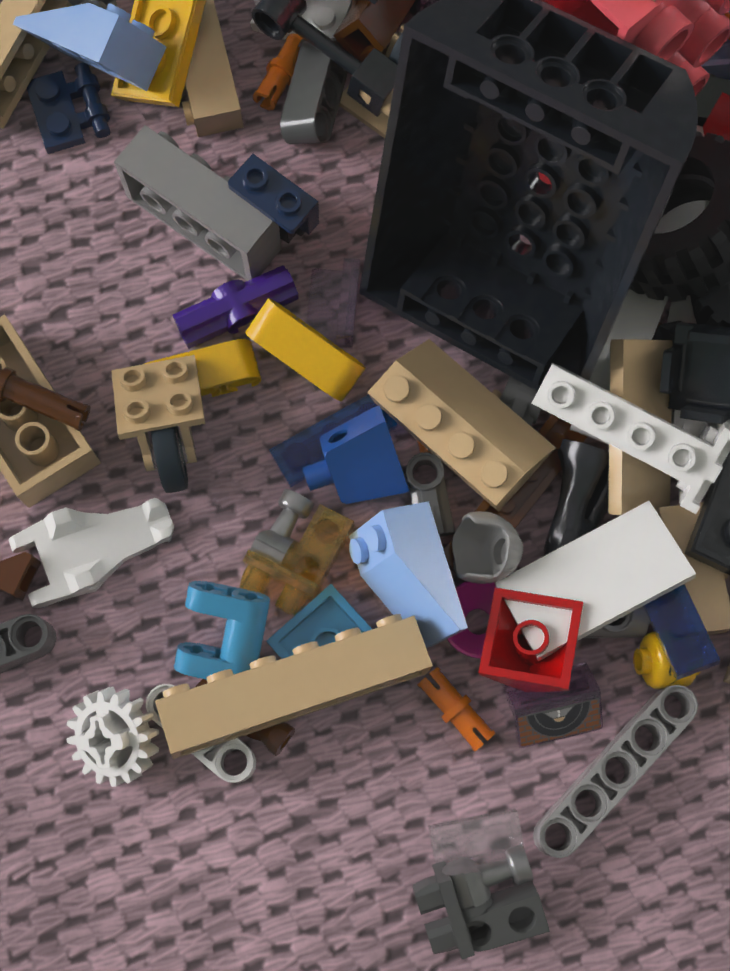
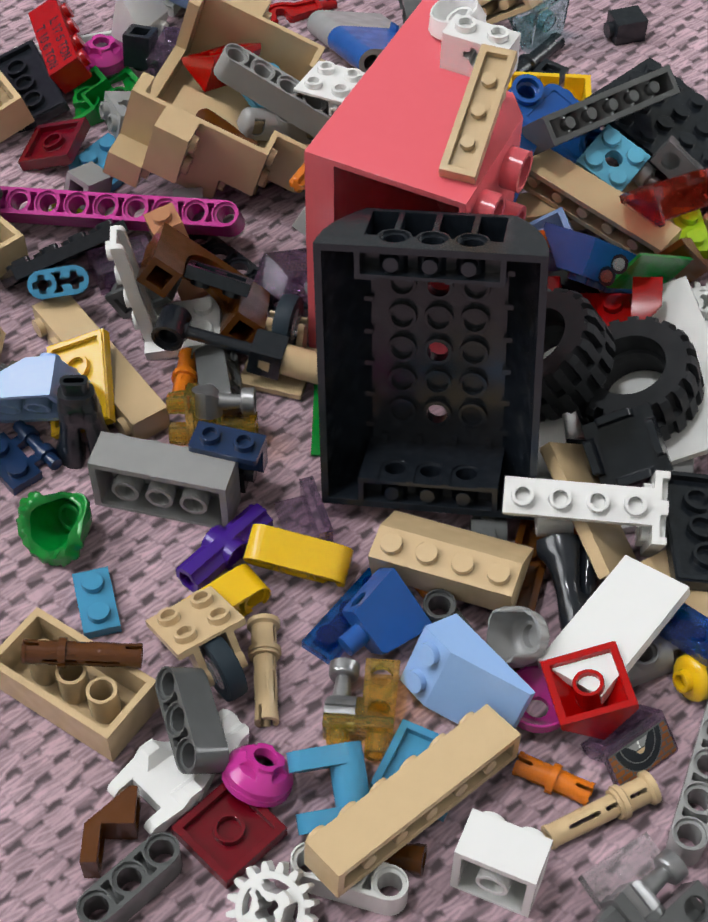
camera: 20 degrees left, 25 degrees down
(67, 215) = (54, 525): none -> green hair
(81, 319) = (96, 602): none -> dark azure plate
(109, 632) = (228, 834): none -> dark red plate
(110, 507) = (192, 720): none -> dark grey beam
(134, 99) = (77, 410): none -> black piece
(143, 594) = (255, 782): none -> dark pink piece
(224, 450) = (264, 654): none -> tan pin
(273, 139) = (207, 405): none -> hips
(352, 787) = (500, 861): none -> white brick
(507, 764) = (621, 807): none -> tan pin

